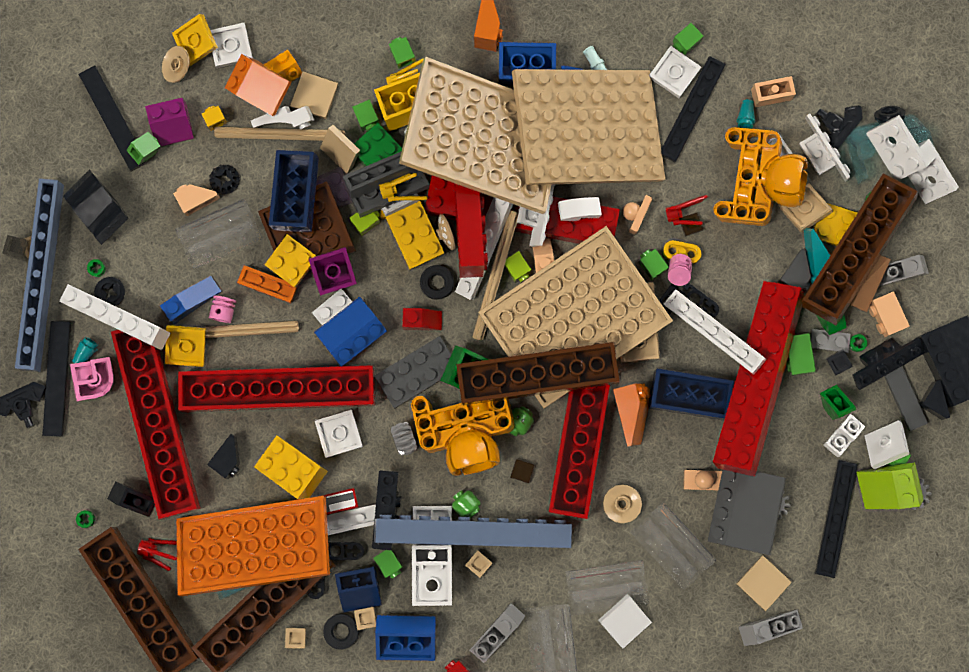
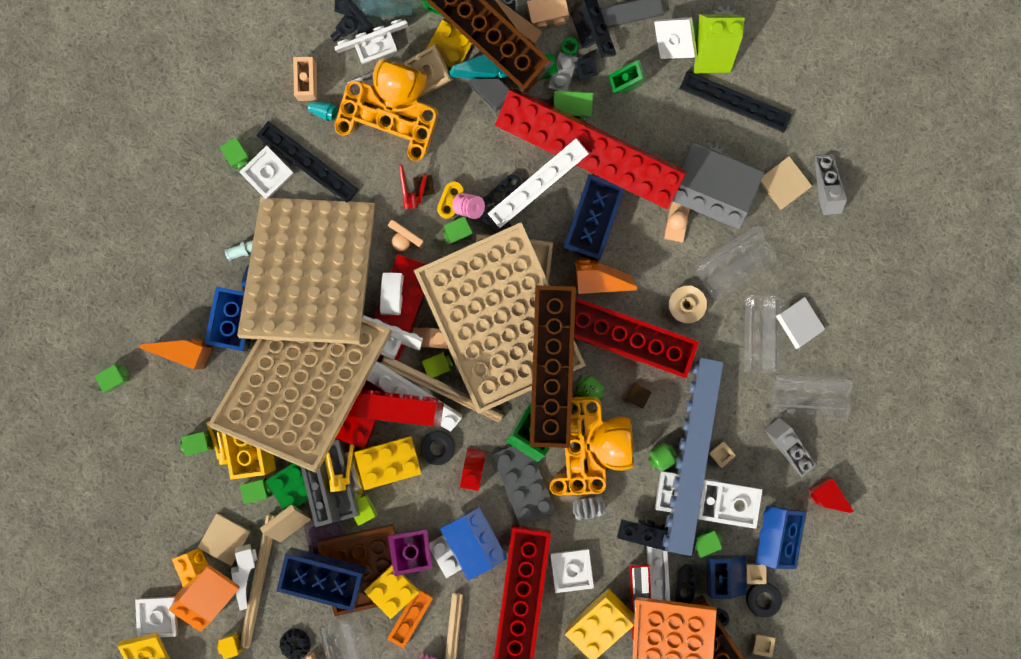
camera: 85 degrees left, 5 degrees up
(444, 232) = (390, 433): tan dish -> none
(844, 435) = (657, 78): white slope -> none

